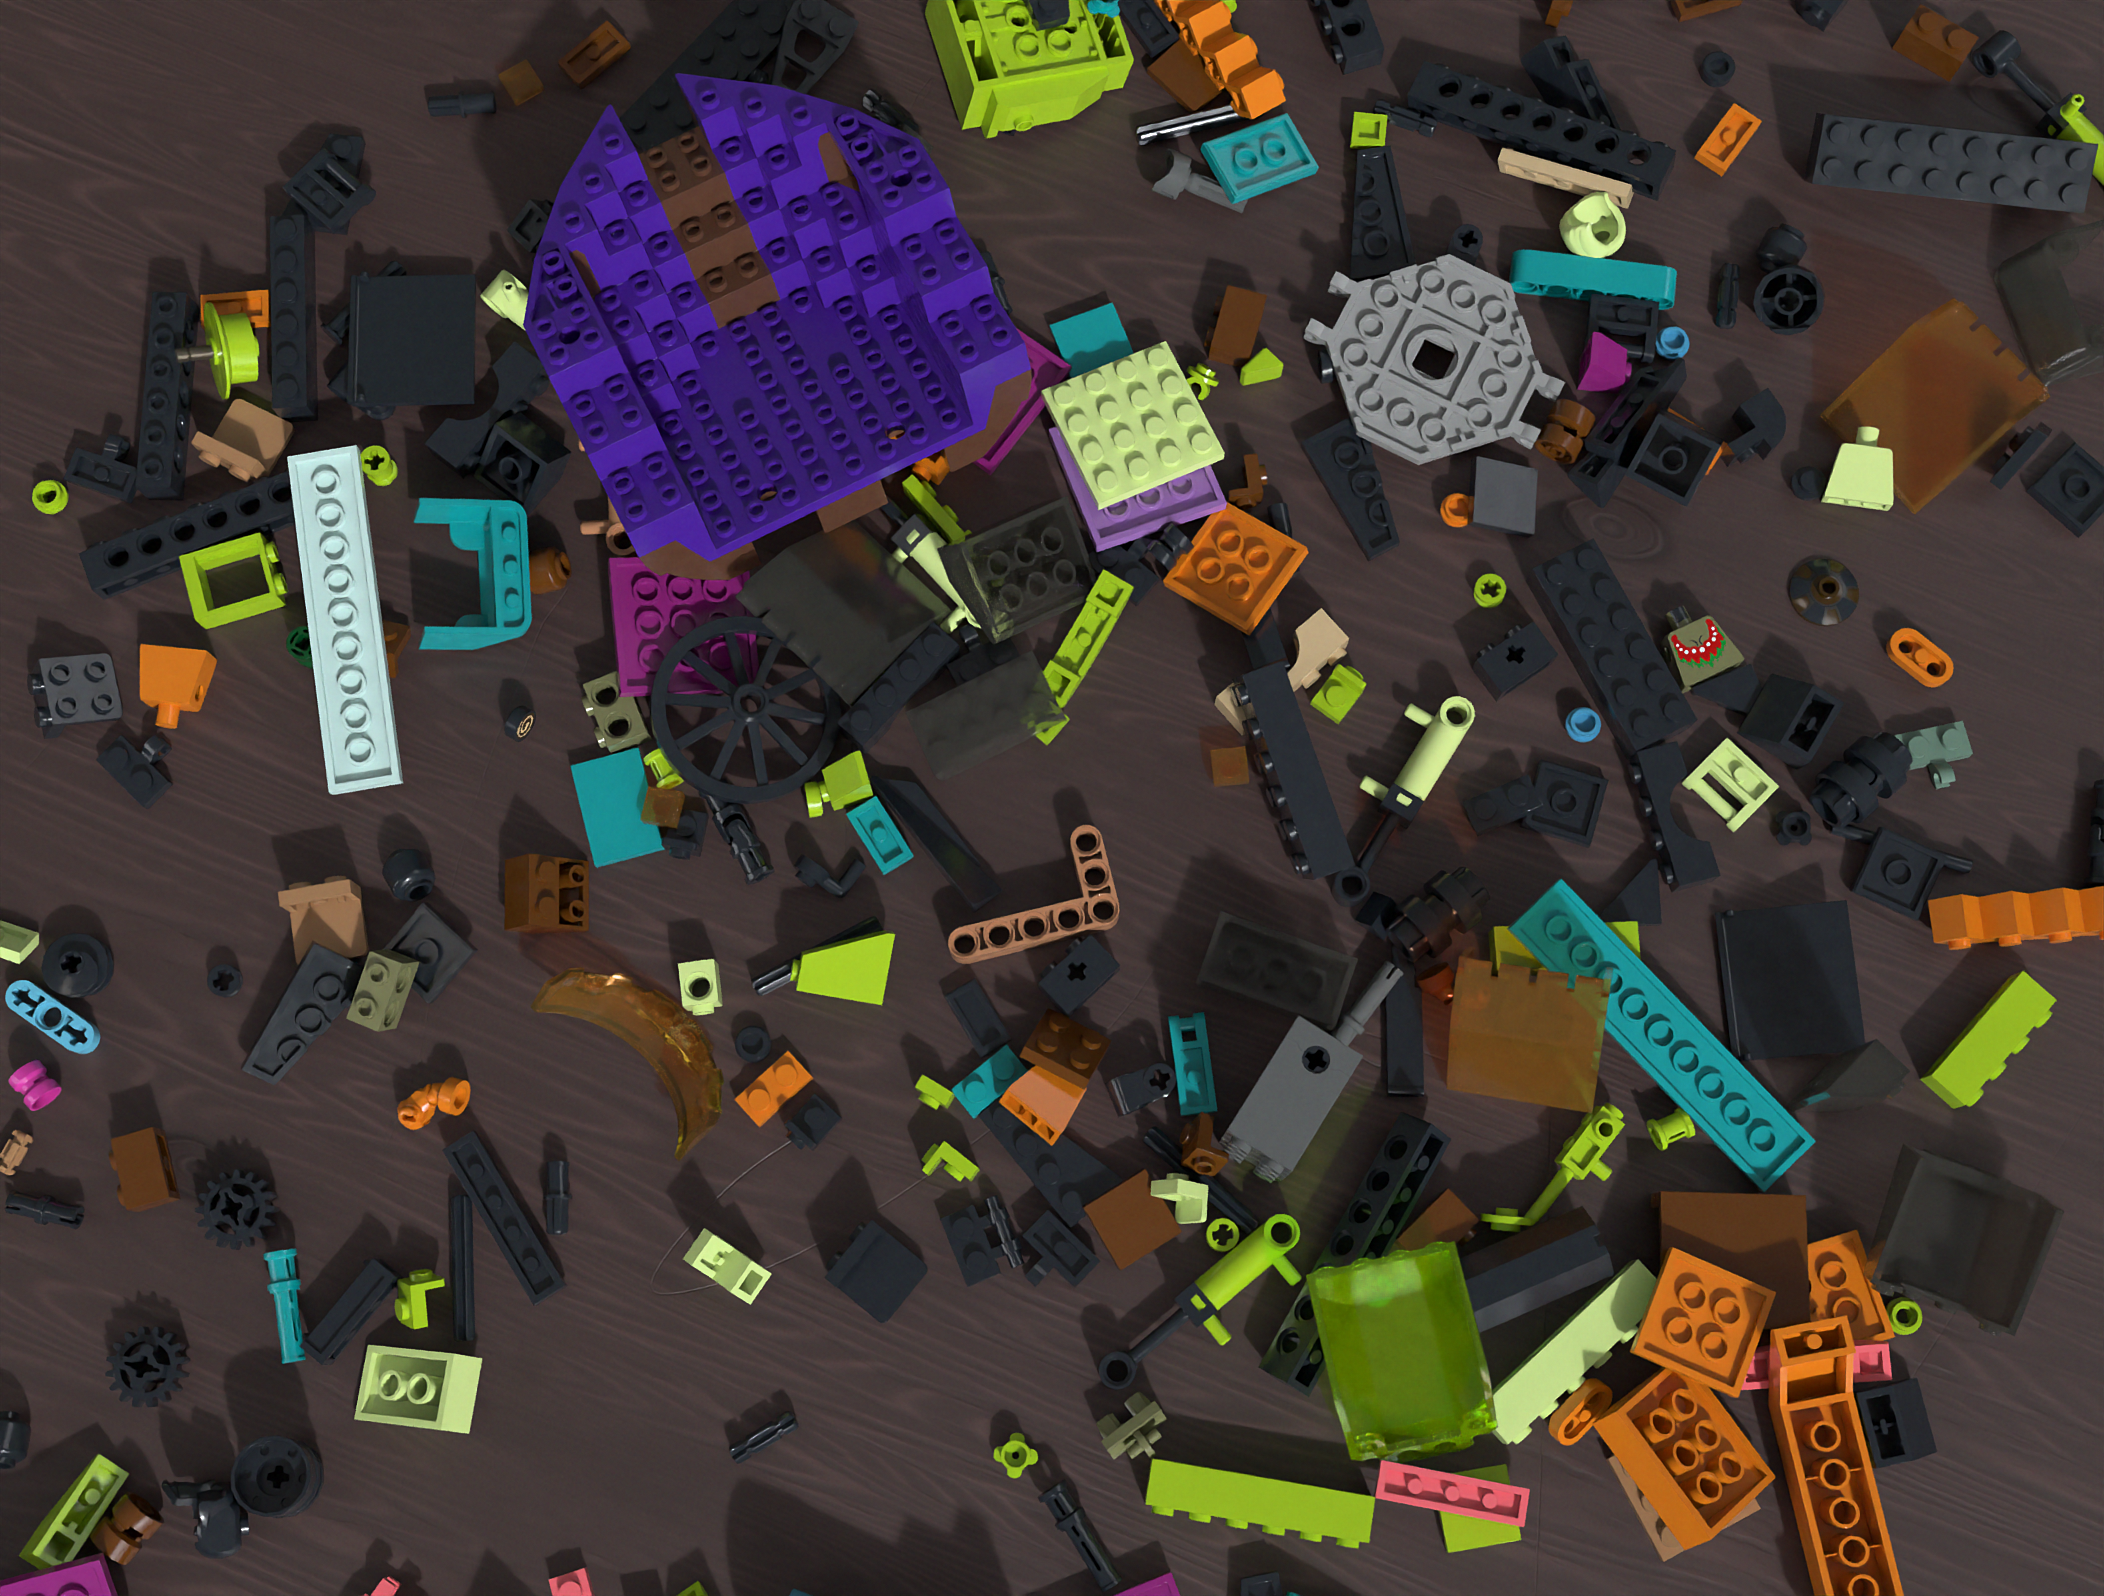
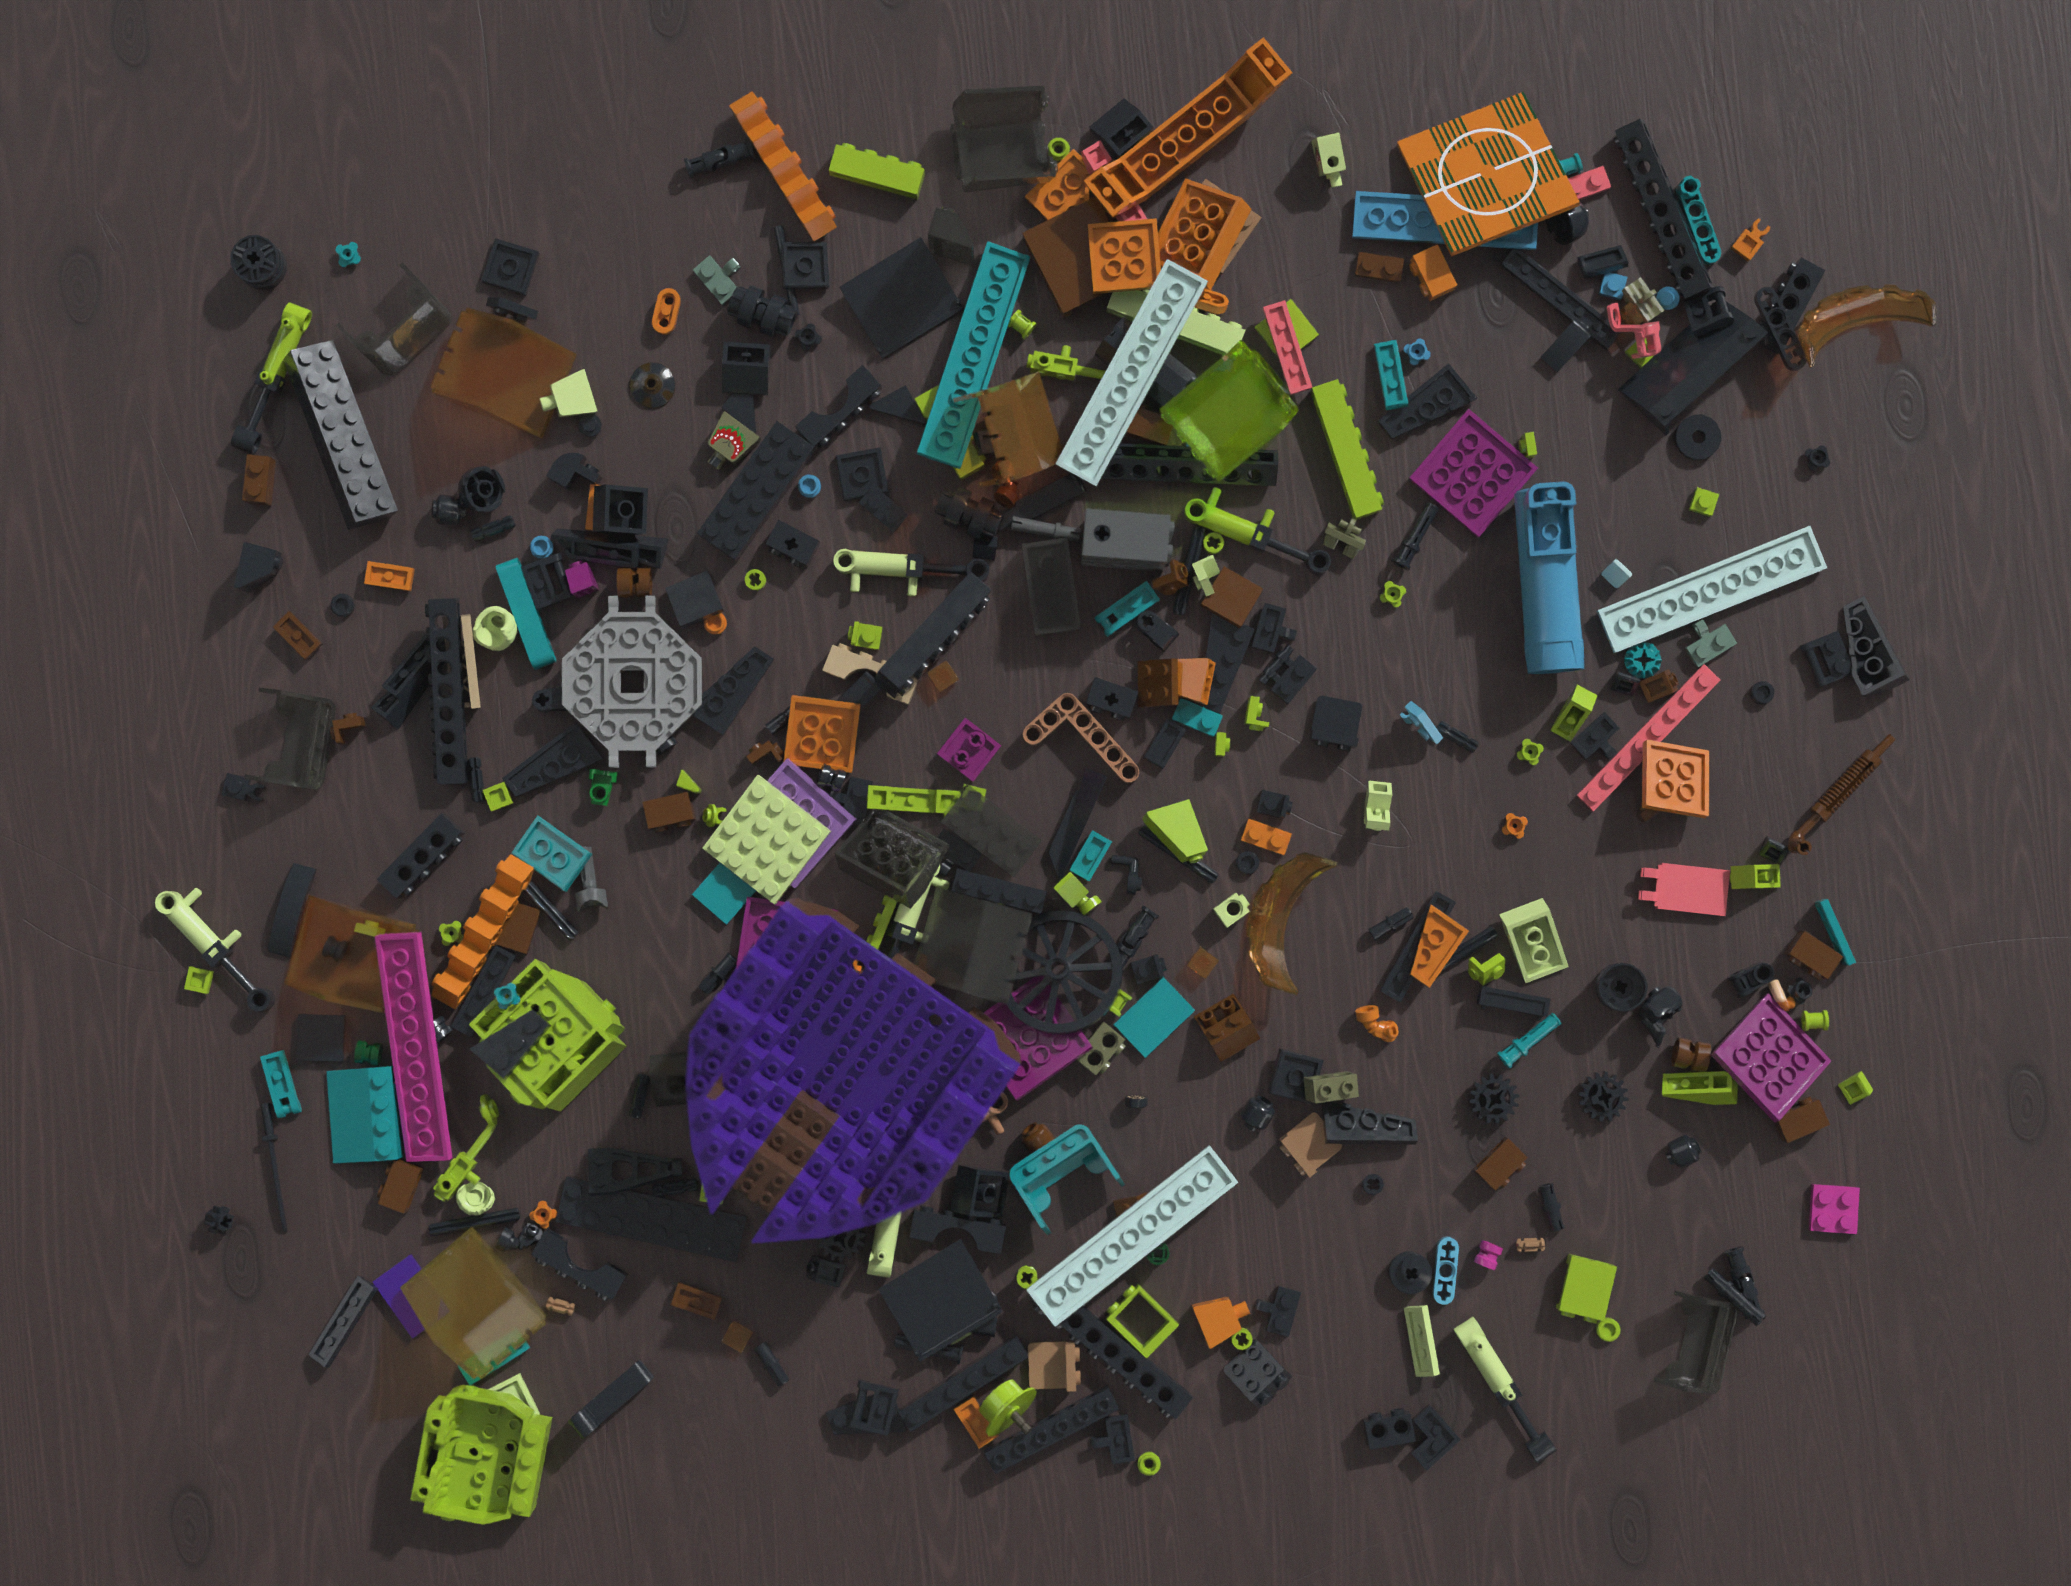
camera: 125 degrees left, 10 degrees up
(121, 697) = (1245, 1345): none -> lime bush
(487, 1241) = (1436, 946): none -> orange wing
(582, 1451) = (1519, 821): none -> orange plate
(651, 909) = (1202, 963): none -> clear orange plate
(662, 807) = (1141, 988): clear orange tile -> none
(673, 1533) = (1536, 750): none -> lime plate
(817, 1390) = (1419, 718): none -> medium azure plate
(1111, 749) = (969, 749): none -> magenta plate
(1319, 264) = (601, 780): none -> green plate
(1529, 1239) = (1131, 372): none -> light aqua plate
(1738, 776) = (794, 383): yellowish green plate -> none

